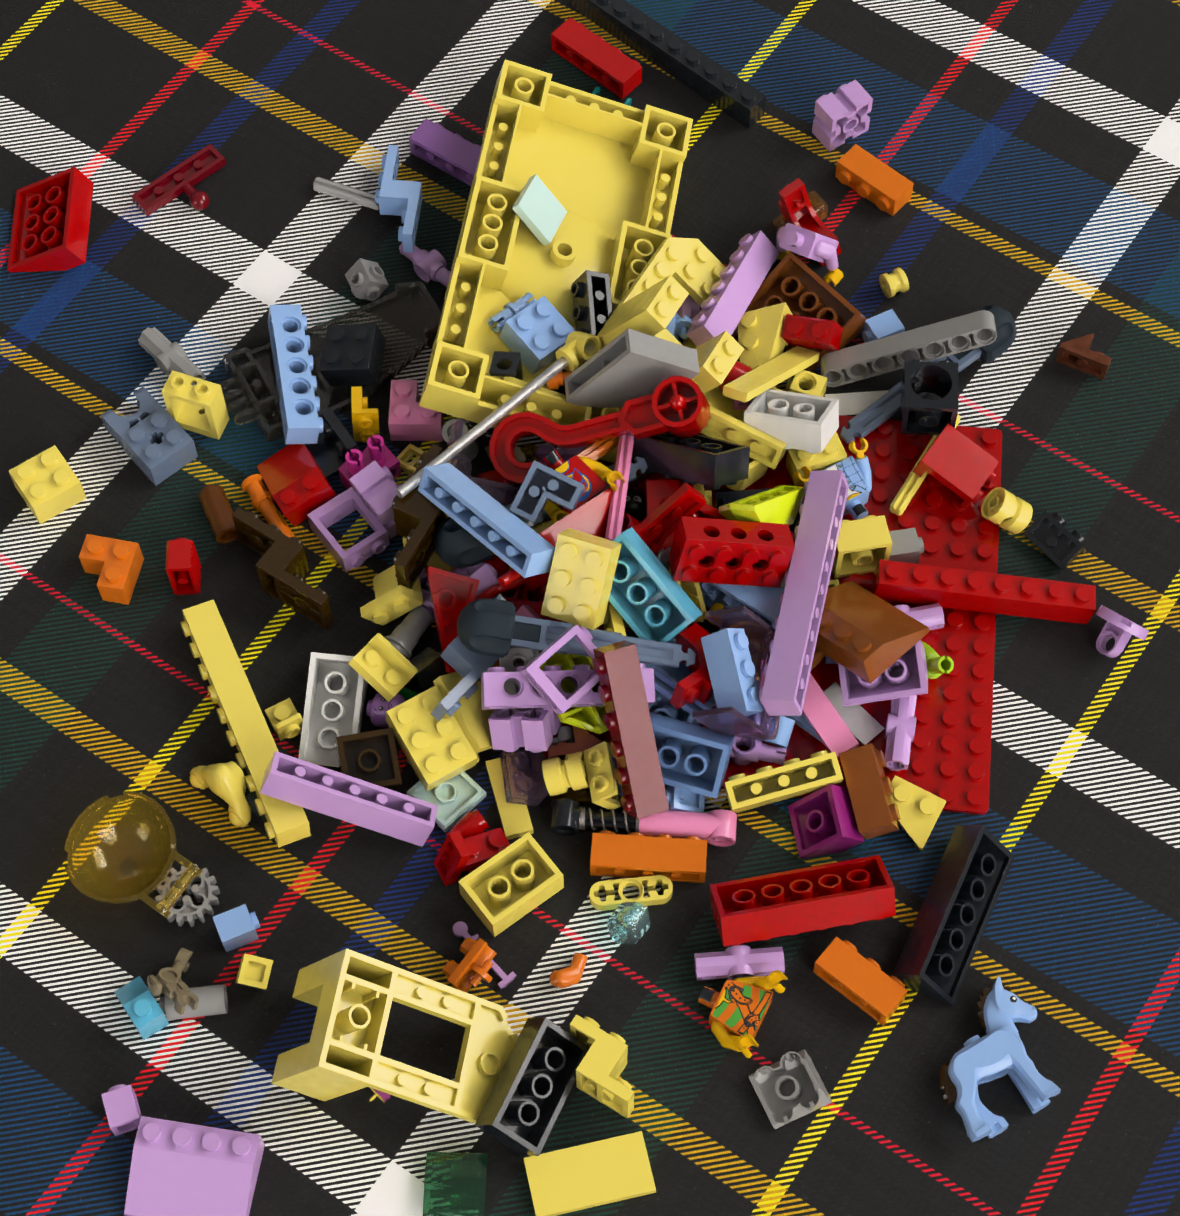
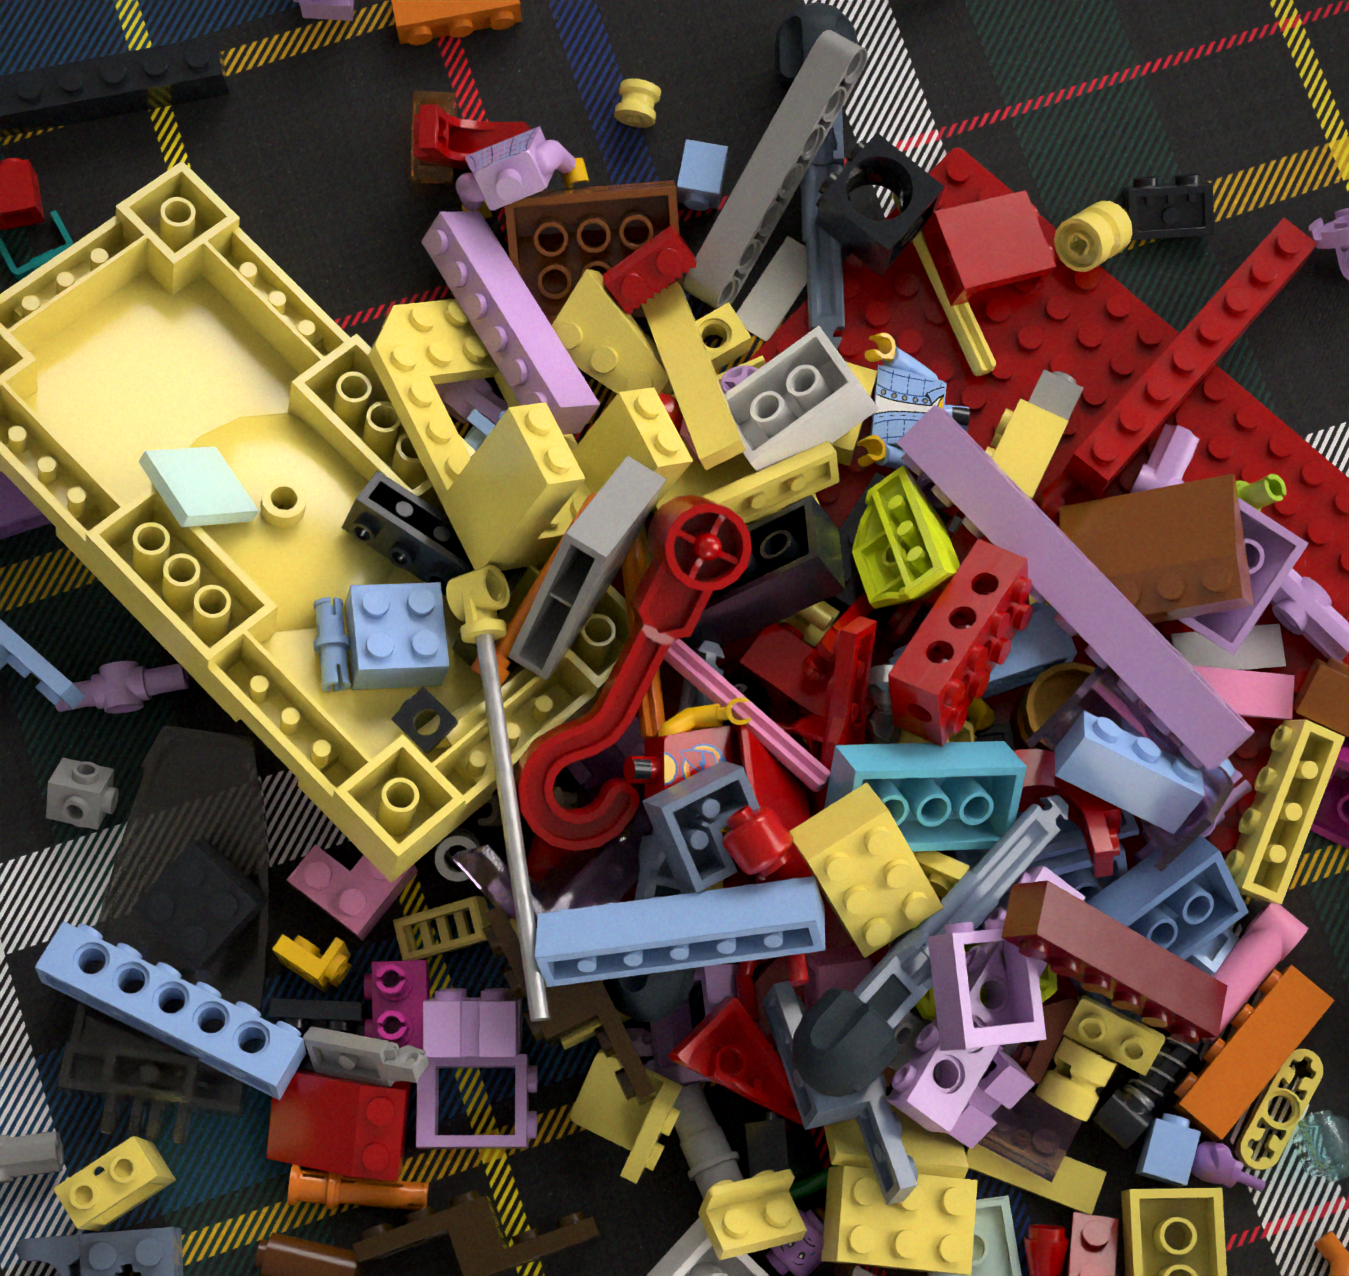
camera: 55 degrees left, 15 degrees up
(330, 460) = (363, 1057): none -> light grey hinge
(553, 514) = (757, 840): none -> red head
(566, 846) = (1168, 1150): none -> light blue brick
(575, 877) = (1216, 1165): none -> medium lavender piece

